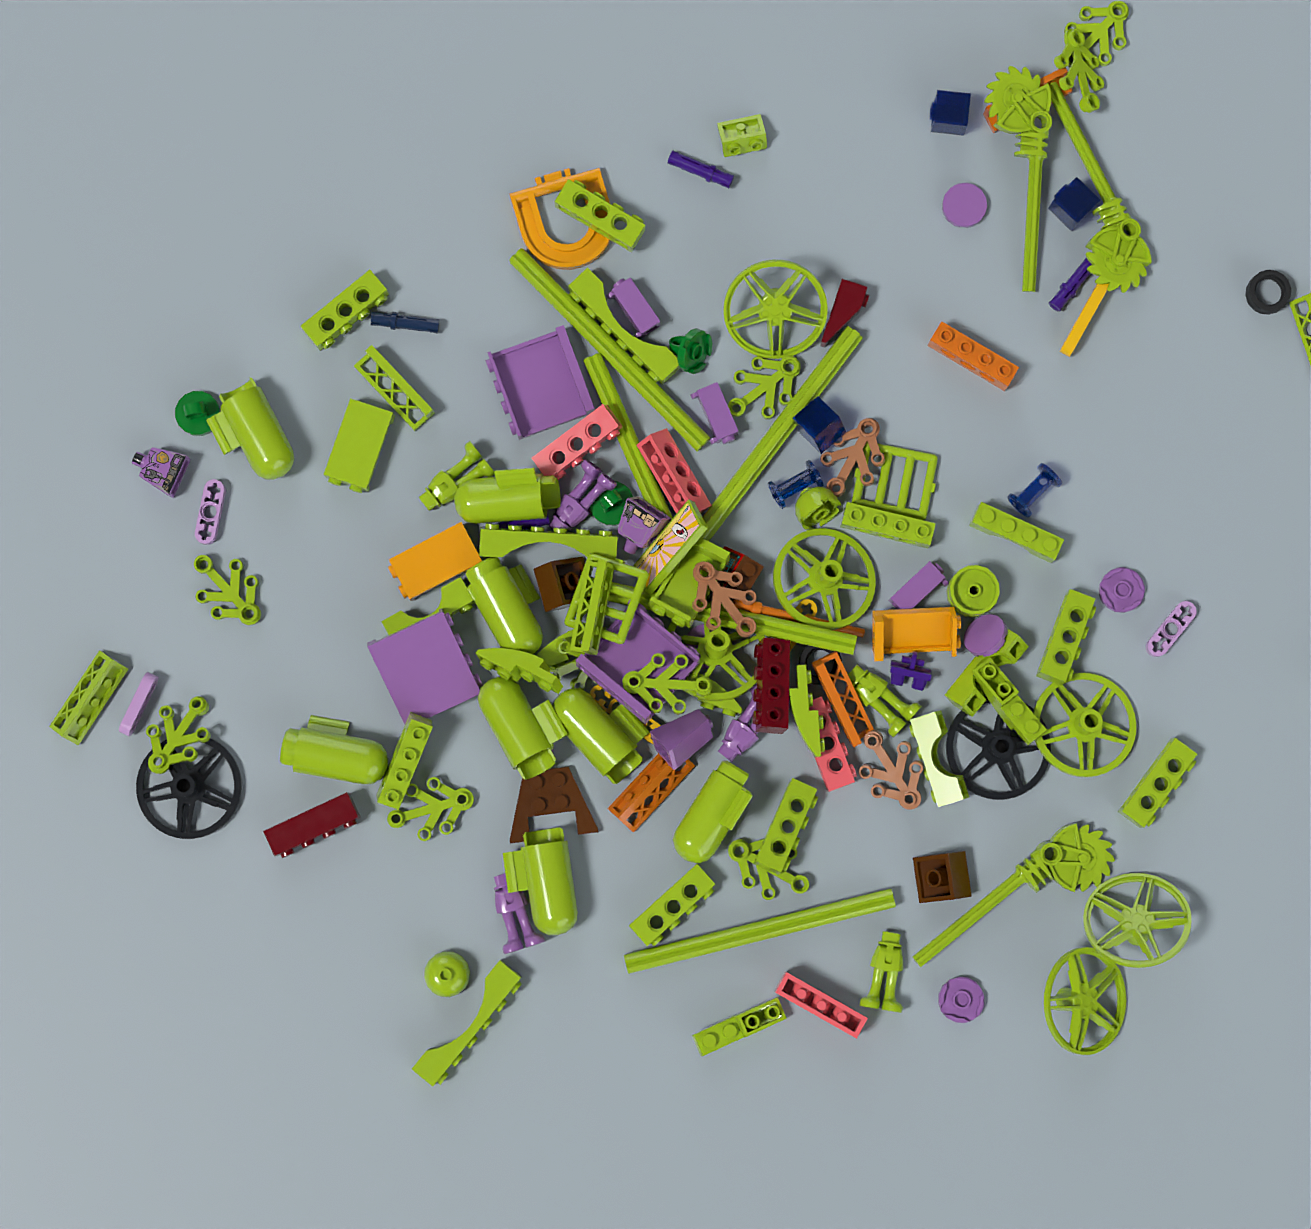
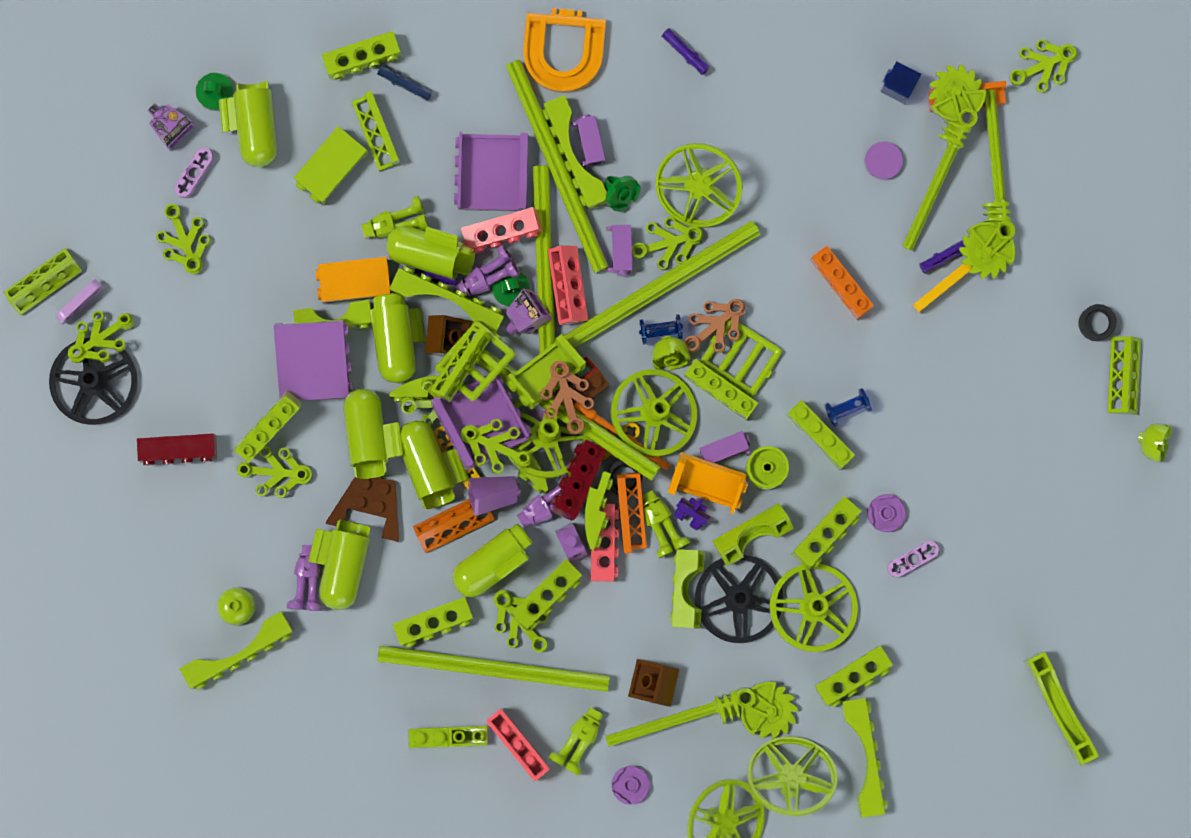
camera: 20 degrees right, 0 degrees up
(329, 753) = (212, 397): lime piece -> none
(518, 664) = (385, 386): lime slope -> none
(576, 190) = (604, 83): lime brick -> none
(671, 545) = (542, 339): tile -> none
(742, 135) = (729, 37): lime bracket -> none
(789, 757) = (571, 543): none -> medium lavender torso
(819, 424) = (698, 289): clear blue head -> none
(845, 307) = (756, 205): dark red slope -> none
(893, 773) = (647, 586): nougat plant -> none
(985, 635) = (763, 506): medium lavender tile -> none
(1006, 702) = (759, 565): lime slope -> none
(1073, 203) = (969, 192): clear blue head -> none
(1074, 45) = (1021, 67): lime plant -> none
(1229, 908) = (870, 797): none -> lime arch

